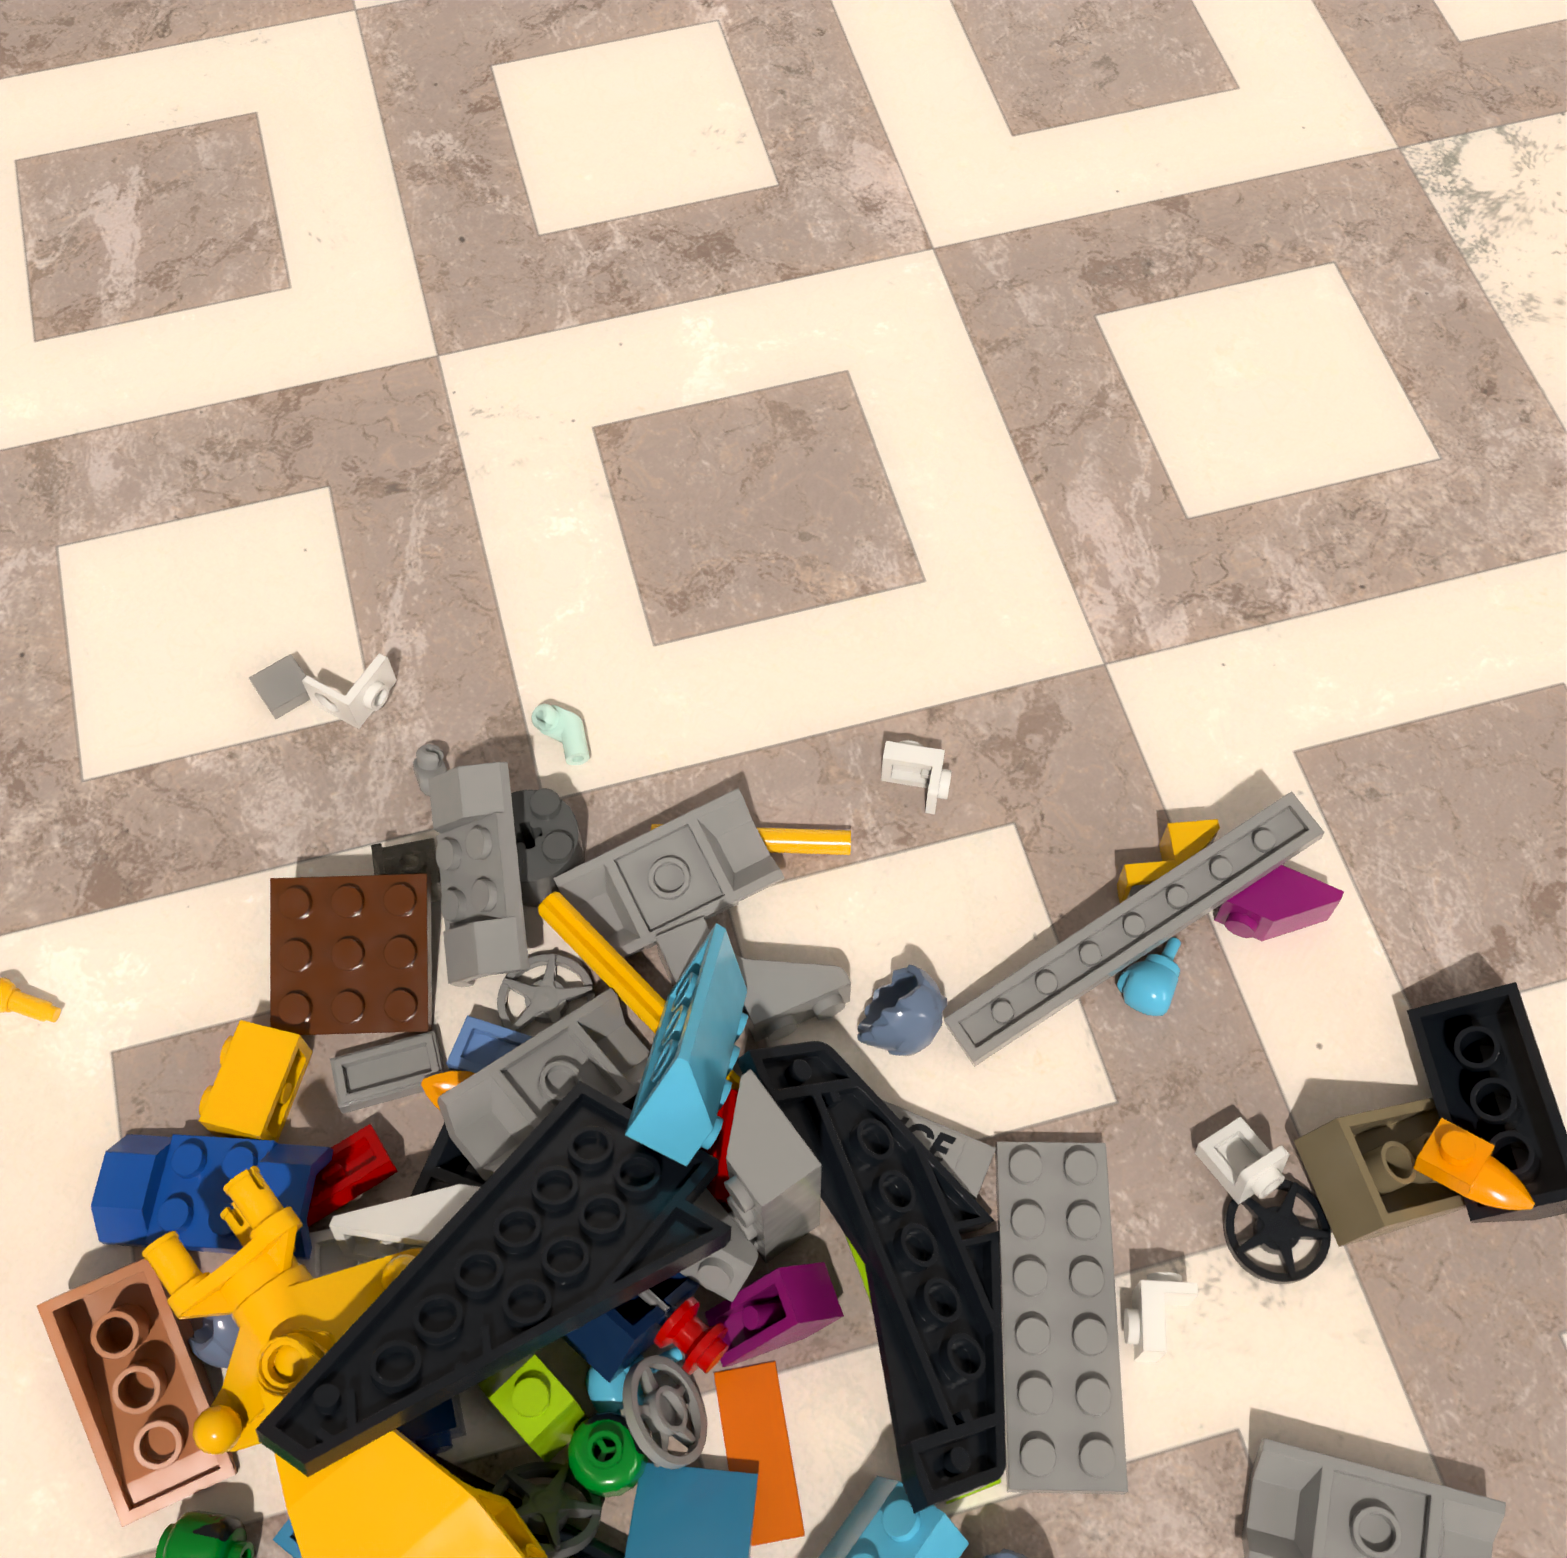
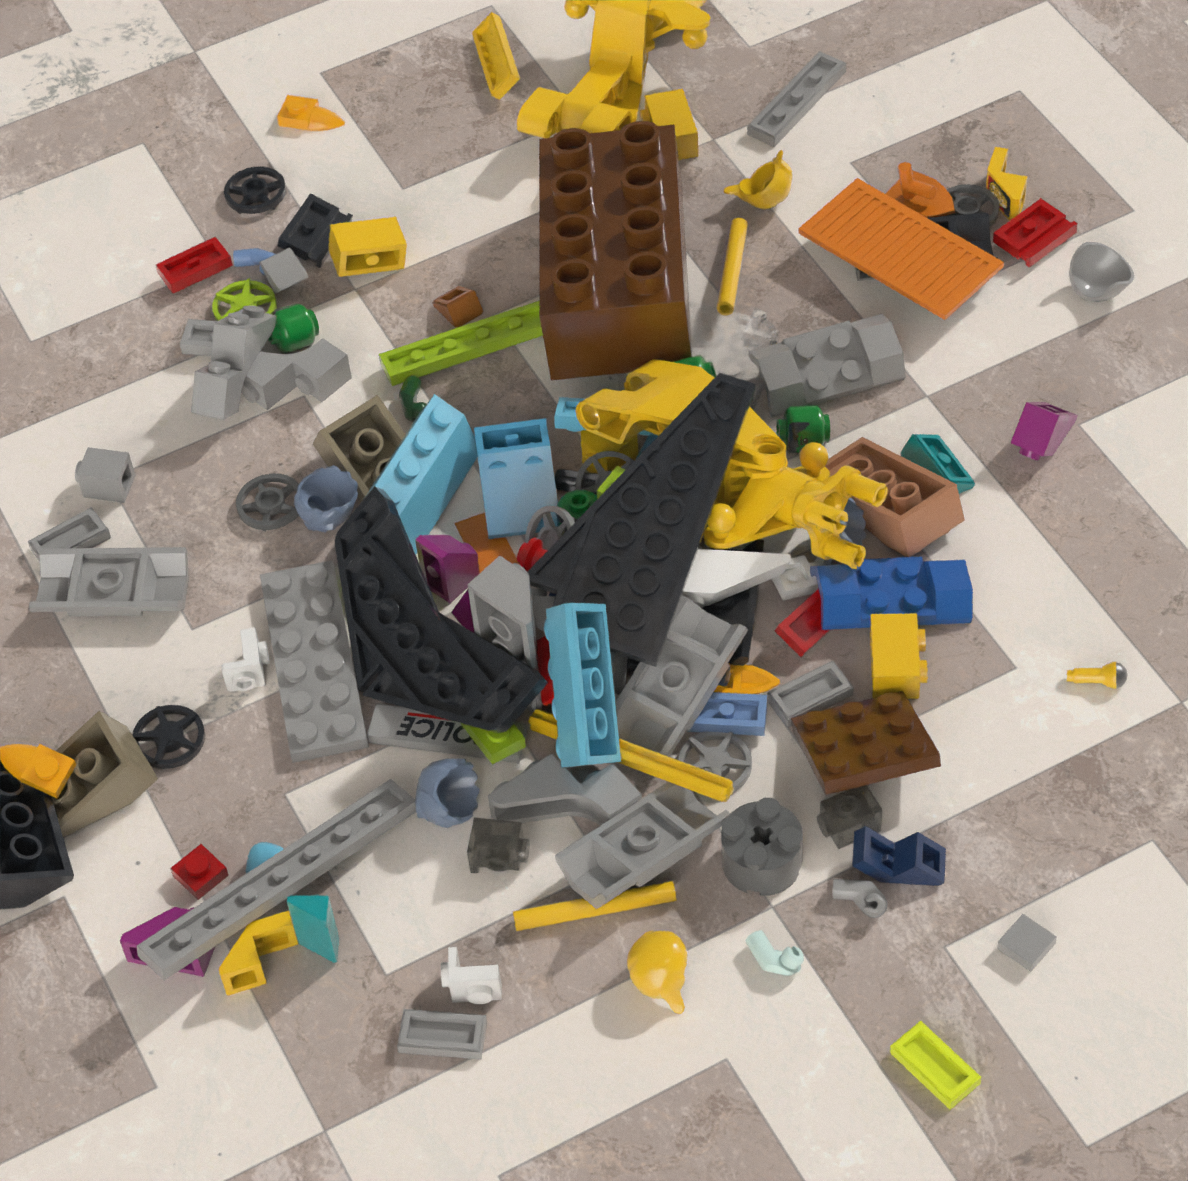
camera: 170 degrees right, 10 degrees down
(41, 1432) = (935, 456): none -> teal slope
(362, 699) = (958, 928): white bracket -> none
(375, 811) = (907, 861): none -> dark blue slope
(440, 585) = (935, 1065): none -> neon yellow tile
(478, 872) = (782, 788): light grey piece -> none
(698, 736) = (658, 967): none -> yellow hair
(830, 1409) = (446, 564): none -> magenta slope
(851, 933) = (497, 845): none -> clear smoke brick
(960, 731) = (442, 1034): none -> light grey tile
(1097, 854) = (315, 924): none -> teal slope
(1237, 1003) = (199, 871): none -> red plate
(1242, 1161) = (192, 757): white bracket -> none

